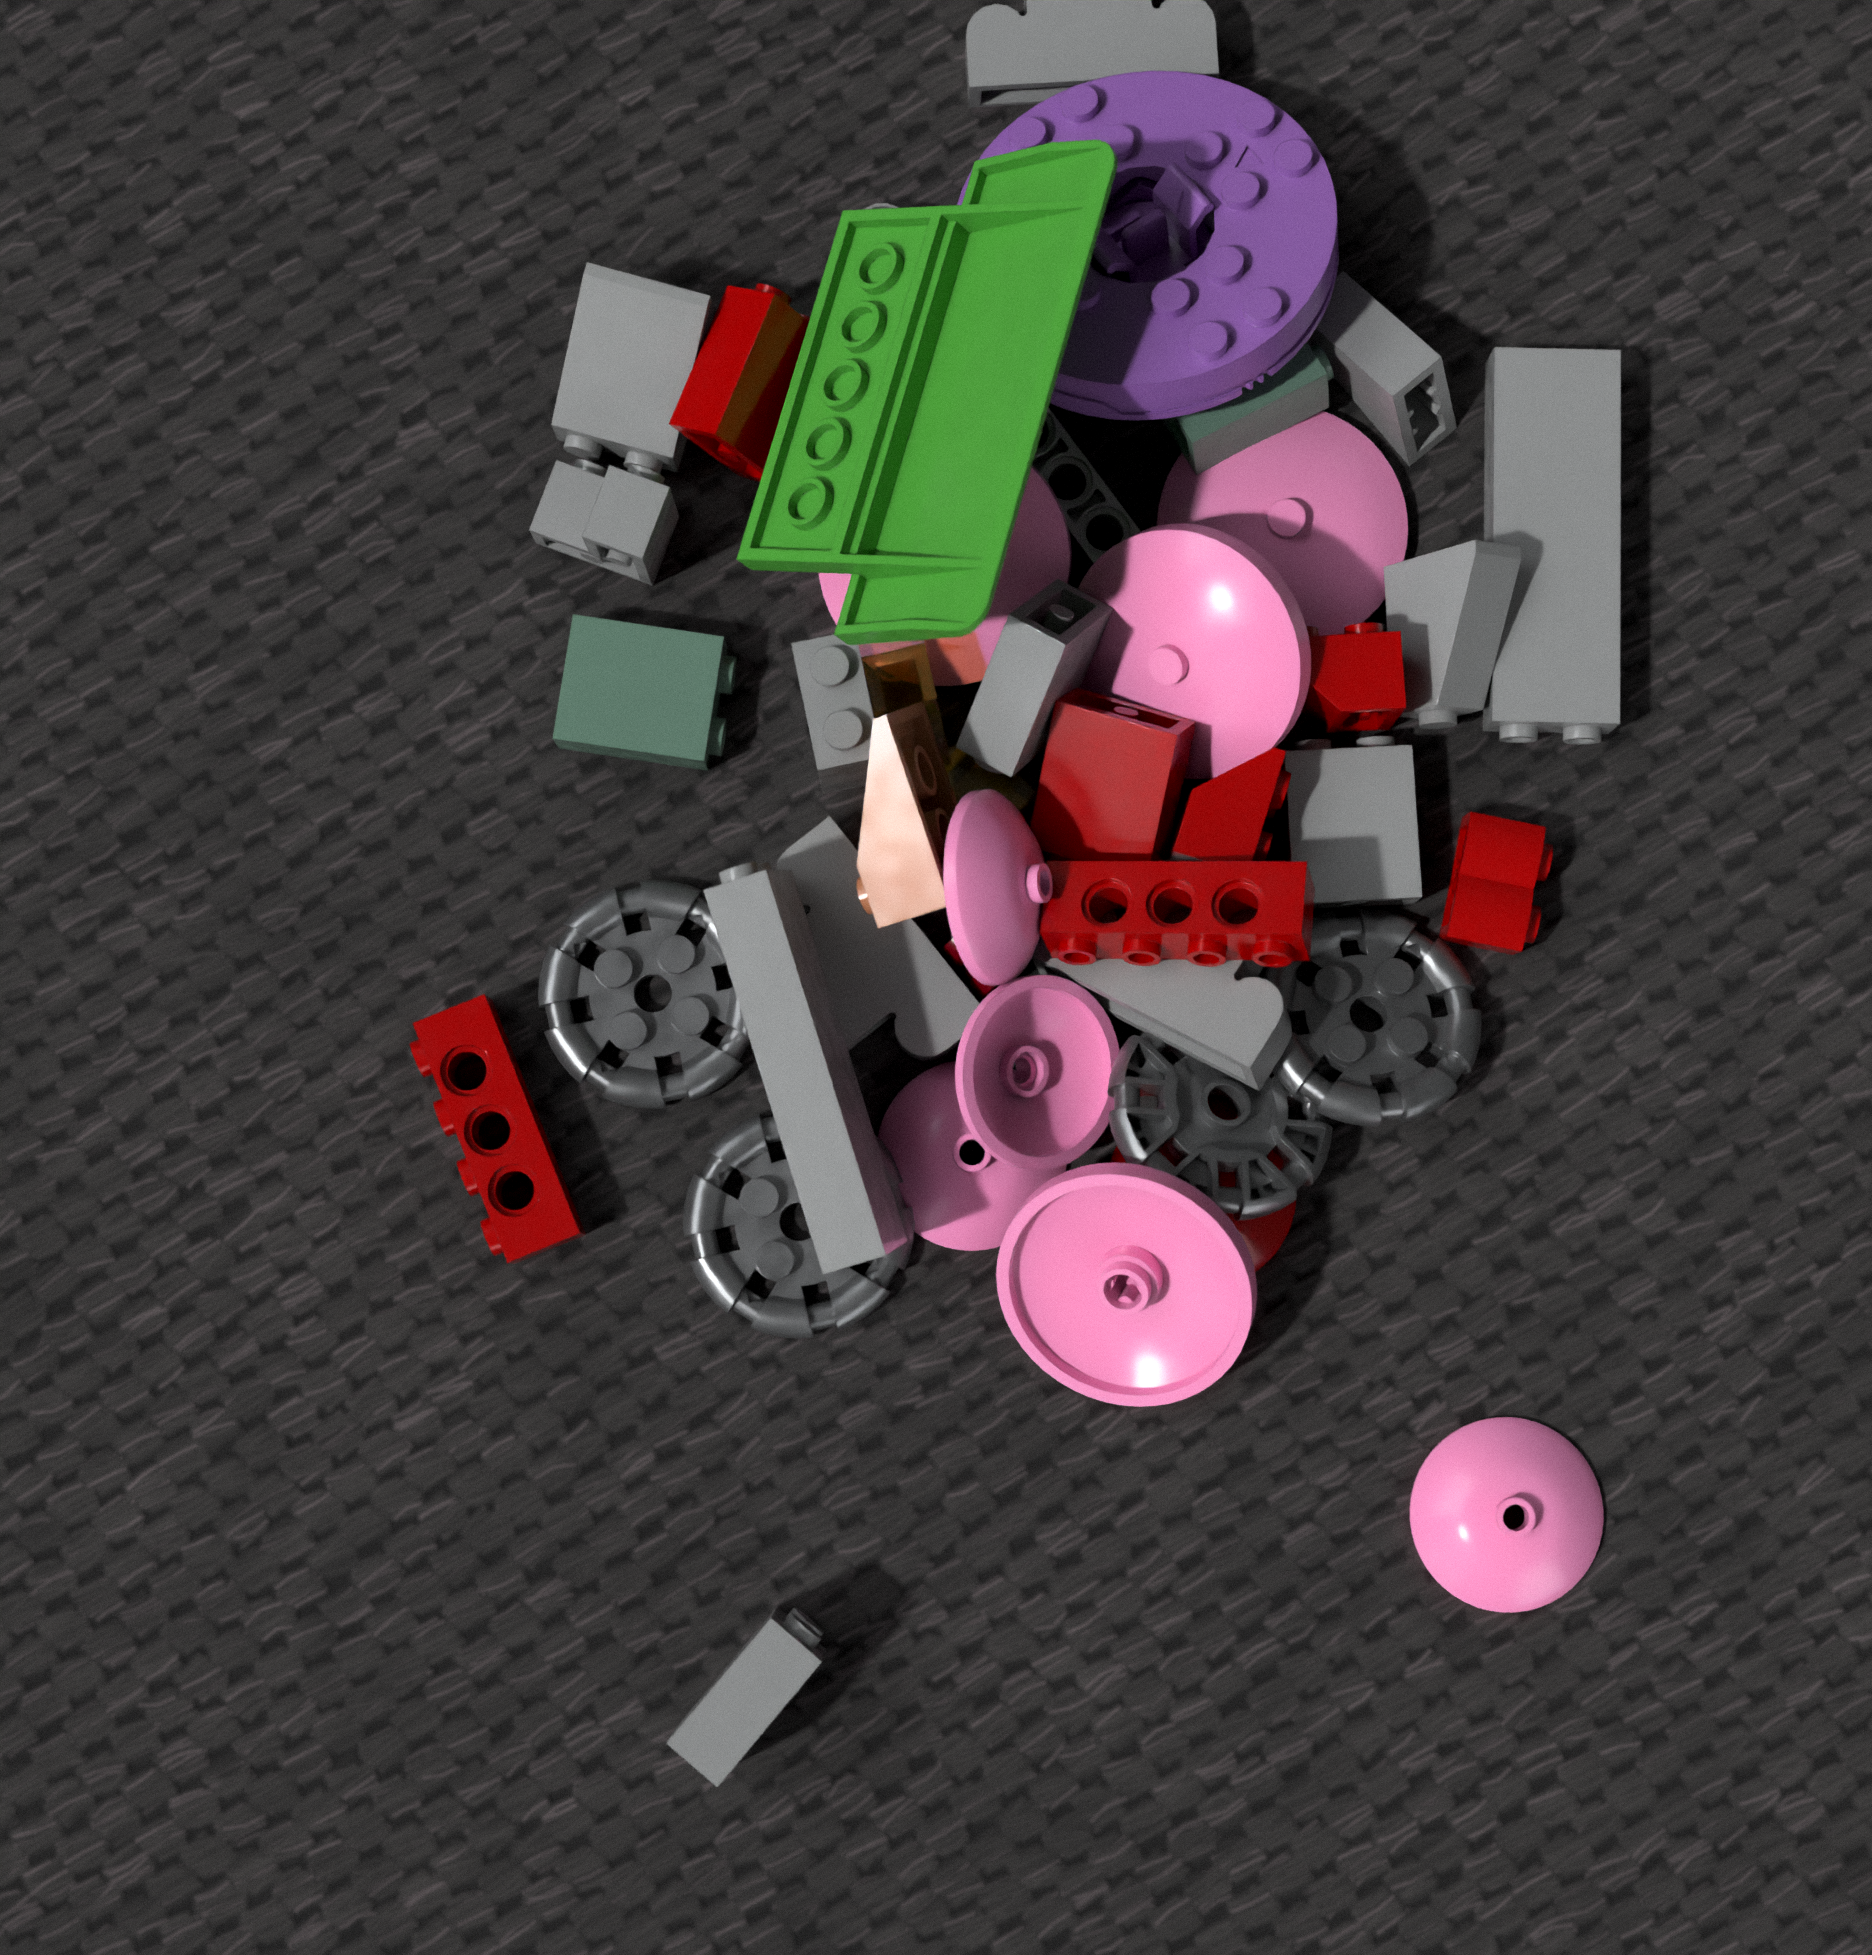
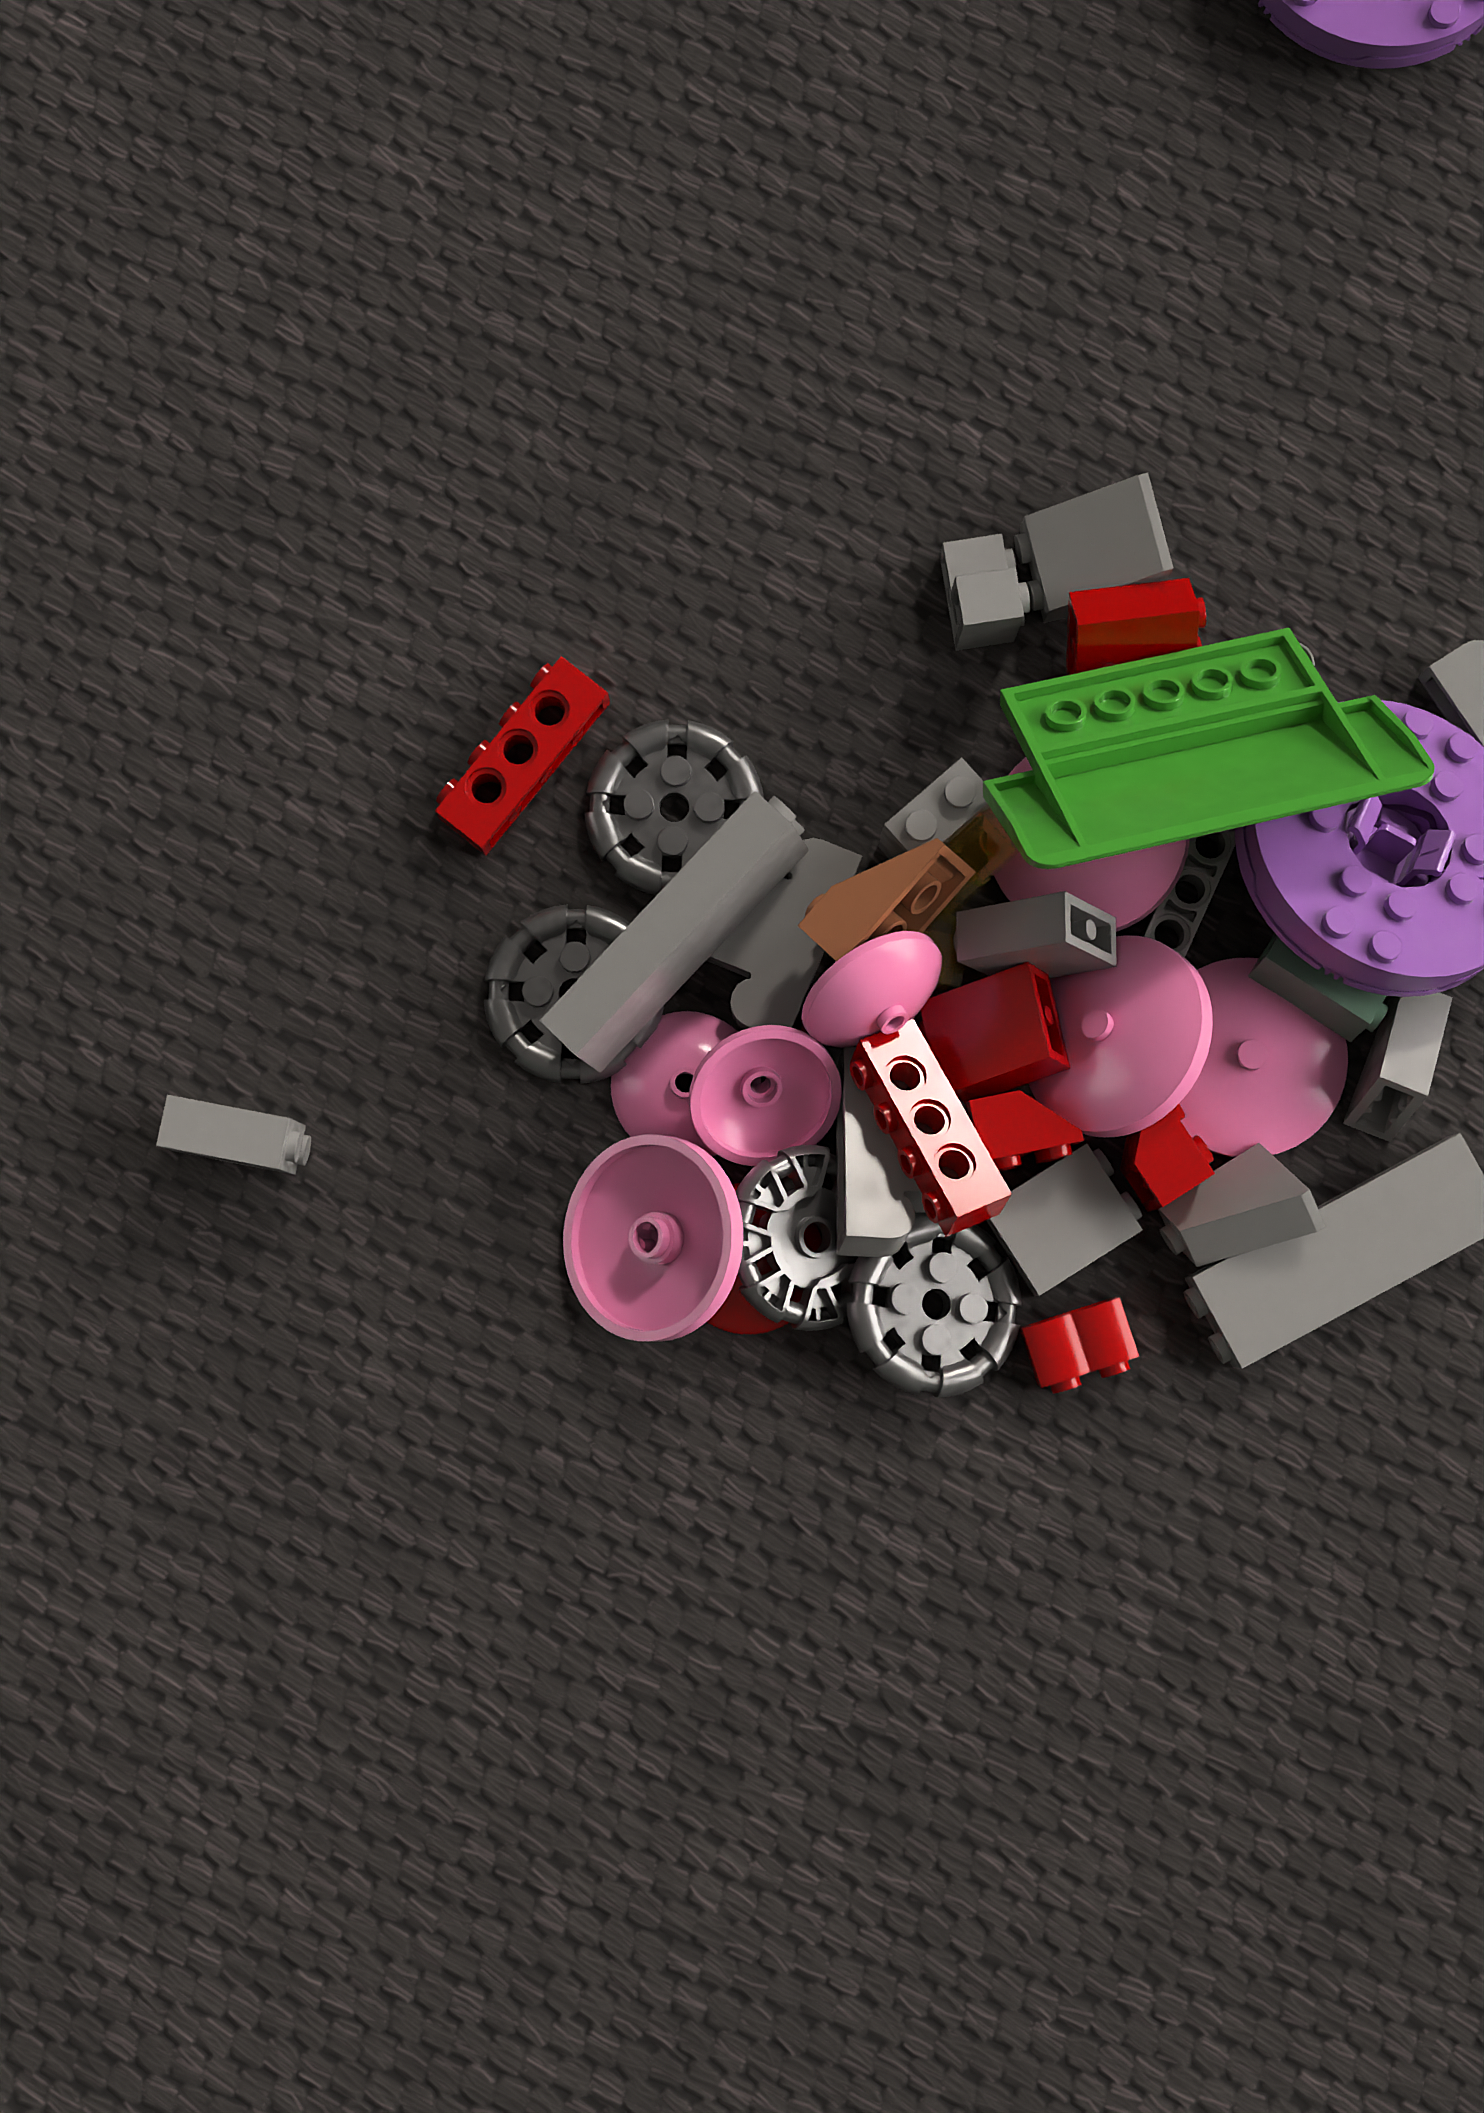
camera: 60 degrees right, 0 degrees up
(643, 692) = (876, 684): sand green brick -> none
(1462, 1503) = (649, 1556): bright pink dish -> none

